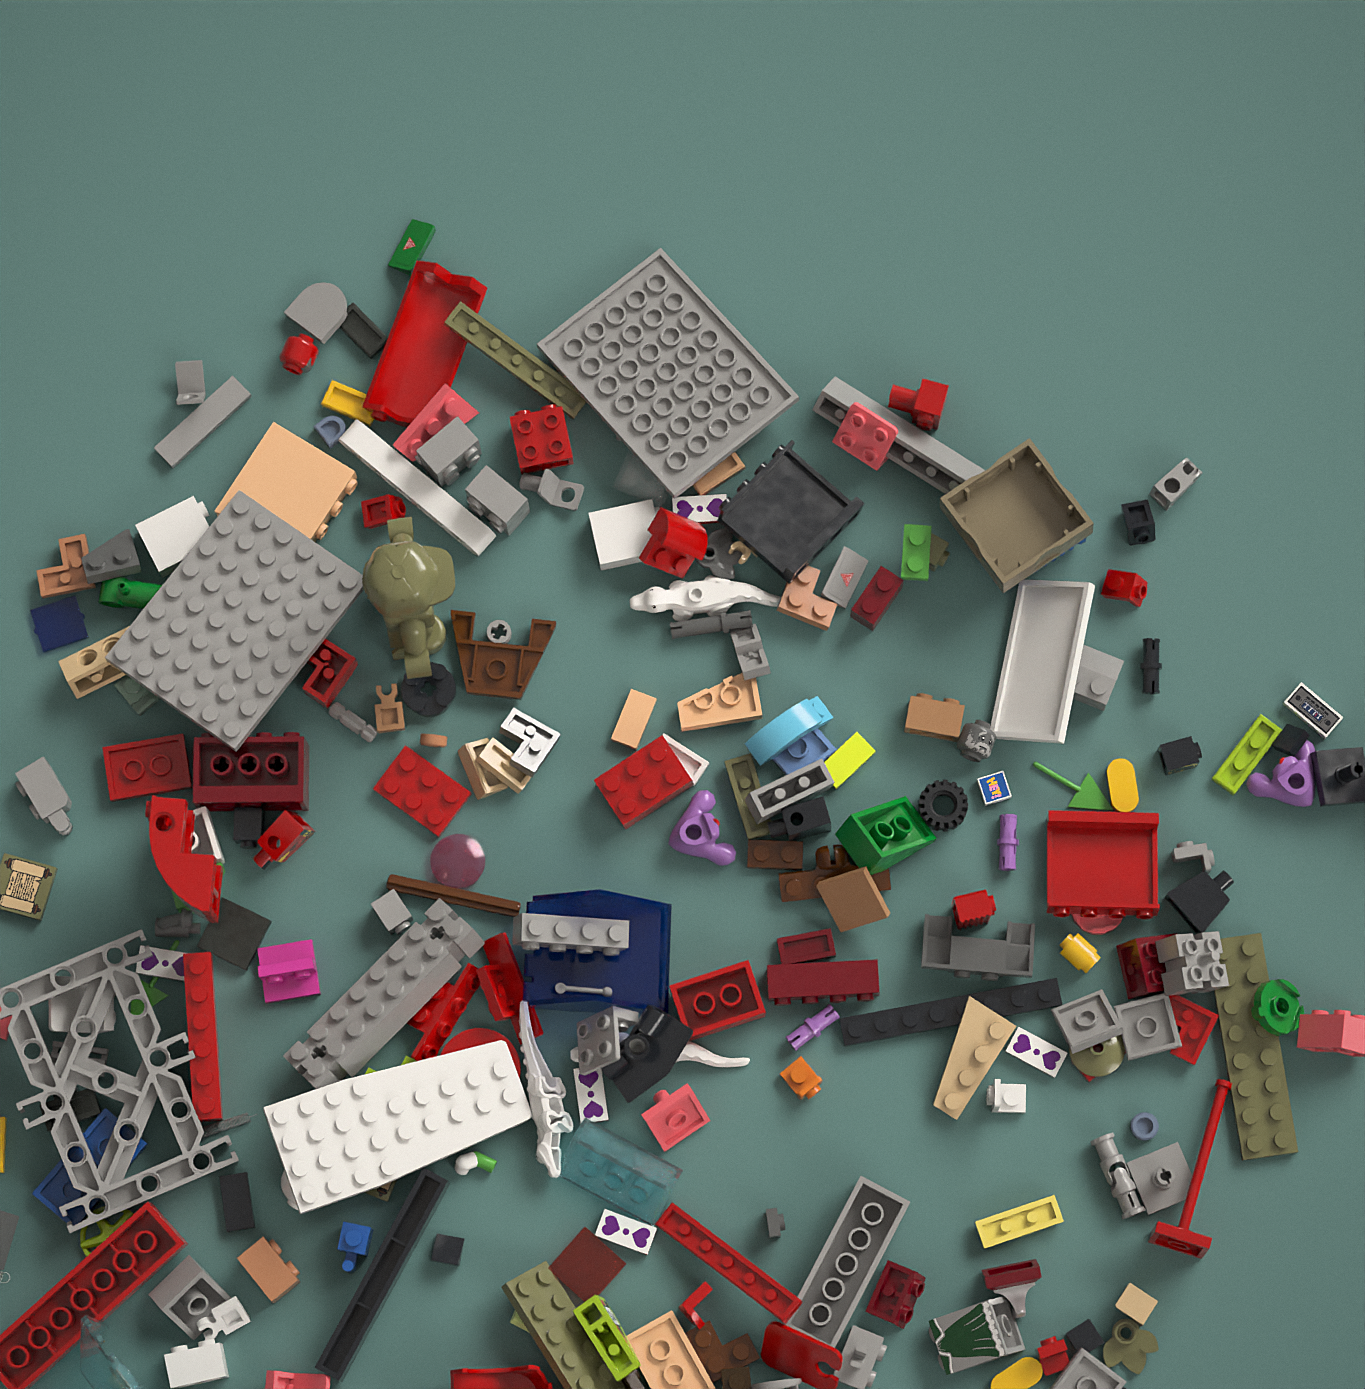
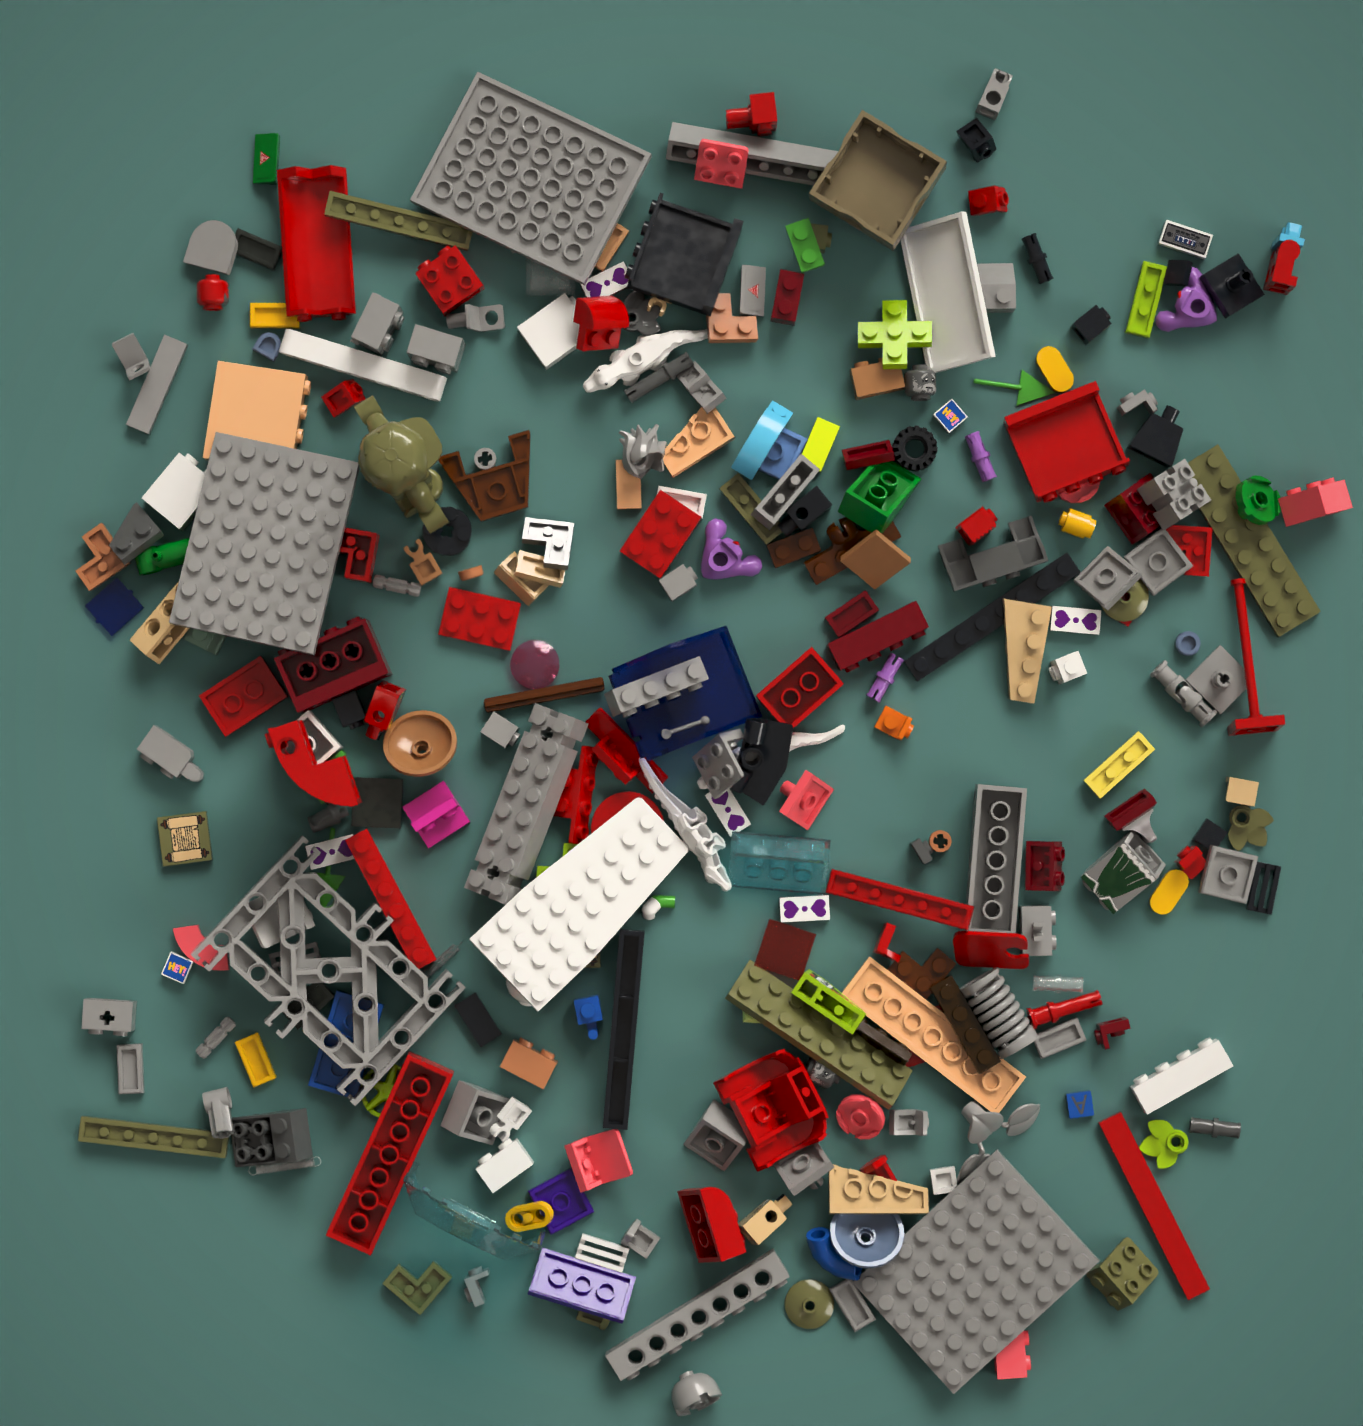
camera: 30 degrees left, 10 degrees up
(307, 880) = (416, 733): none -> medium nougat dish
(435, 416) = (352, 303): coral wing -> none
(448, 1250) = (666, 984): black slope -> none
(641, 838) = (678, 582): none -> light grey brick
(661, 690) = (642, 451): none -> light grey hair
(789, 1225) = (945, 835): none -> nougat bush
(891, 791) = (868, 455): none -> dark red tile
(970, 680) = (894, 334): none -> lime plate

